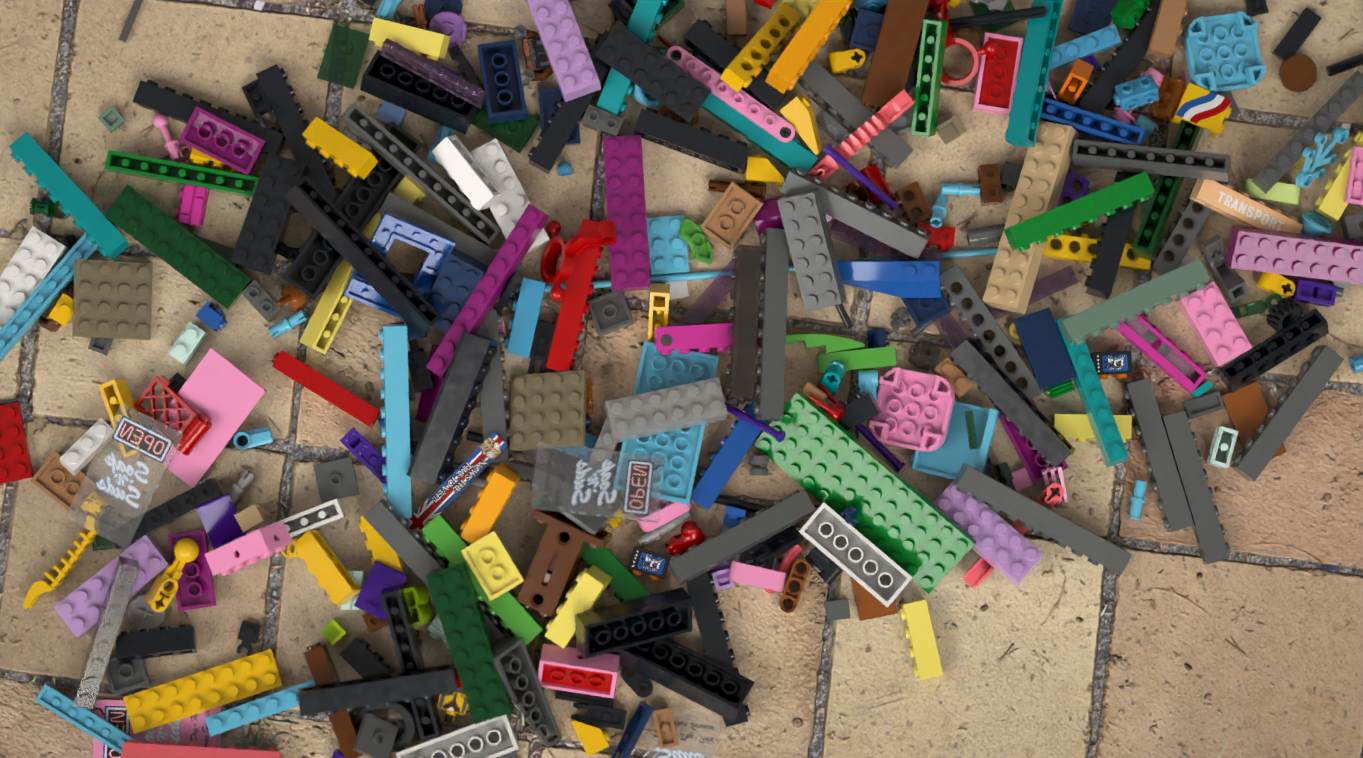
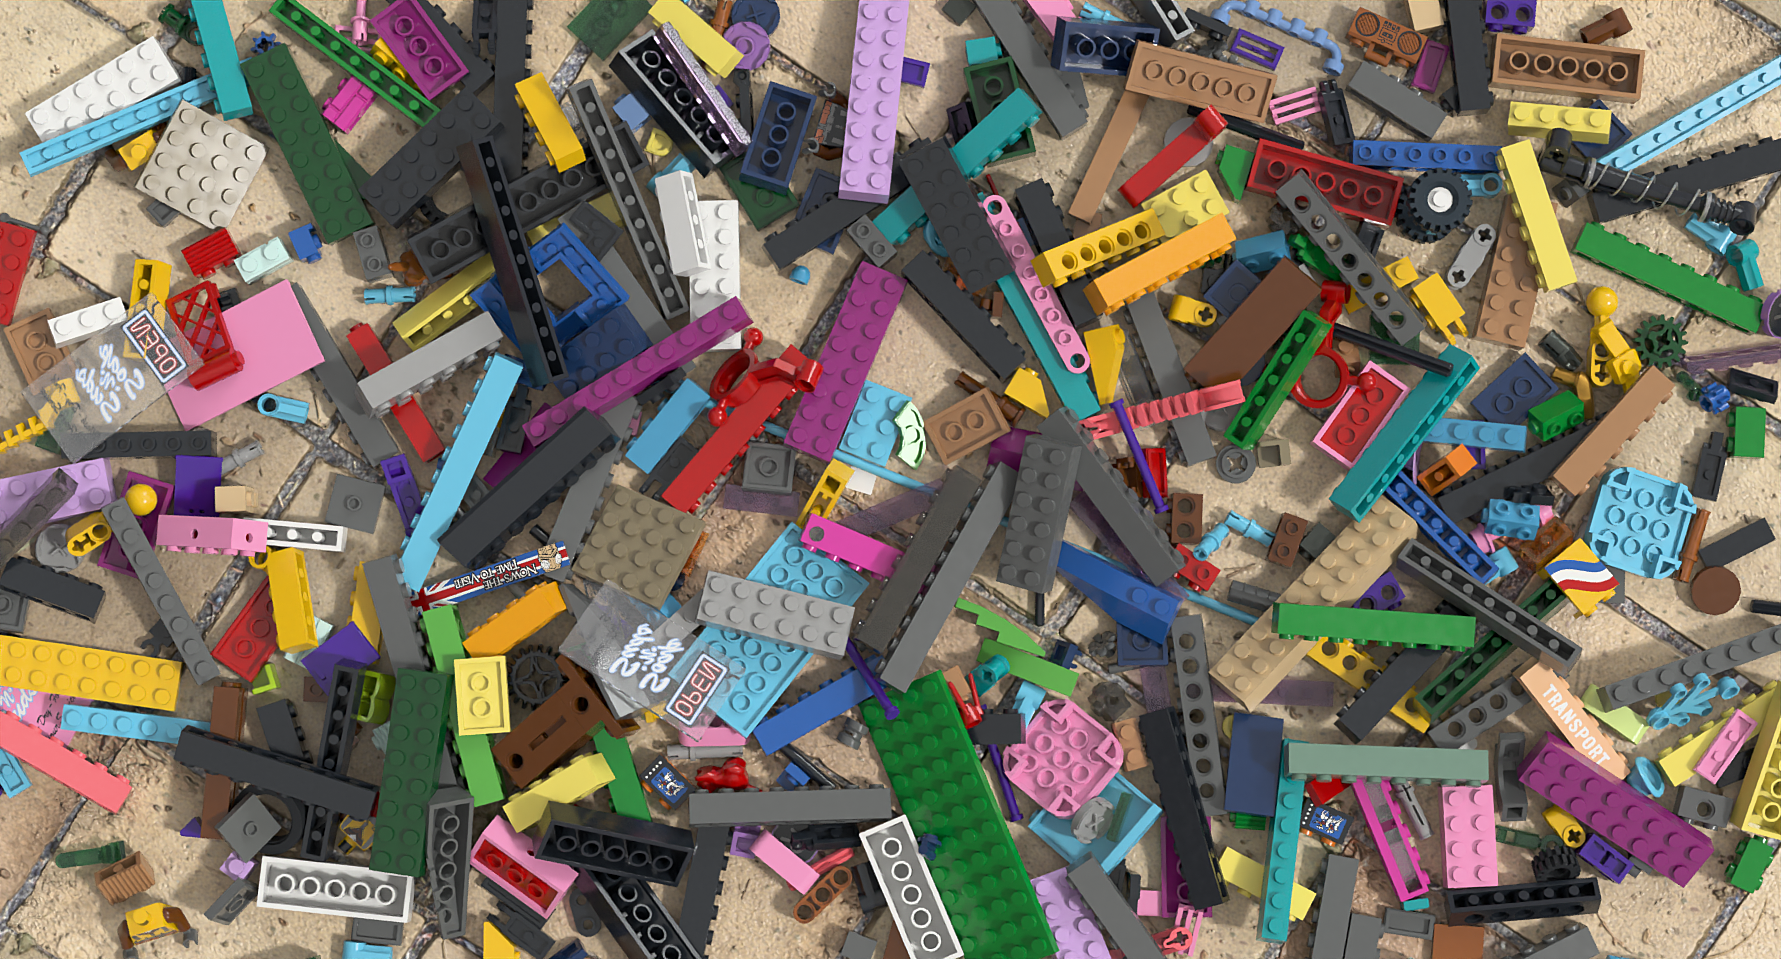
camera: 30 degrees right, 0 degrees up
(110, 197) = (260, 43): none -> blue gear
(149, 356) = (211, 254): none -> red brick
(232, 606) = (160, 591): none -> dark grey brick
(294, 407) = (340, 388): none -> dark grey brick
(310, 606) = (250, 637): none -> red tile
(339, 357) = (428, 365): none -> light grey brick
(413, 205) = (600, 230): none -> black tile
(421, 126) = (659, 143): none -> light yellow tile
(512, 522) = (539, 689): none -> black gear
(616, 339) = (760, 502): none -> clear purple plate
(709, 122) = (994, 305): none -> reddish brown tile
(933, 157) = (1247, 462): none -> dark grey gear
(954, 441) = (1092, 820): none -> light grey tile
(1101, 342) = (1323, 791): none -> red tile
(1143, 68) = (1533, 494): none -> black plate
(1168, 325) = (1413, 809): none -> light grey pin
(1266, 50) = (1691, 546): none -> dark orange pin

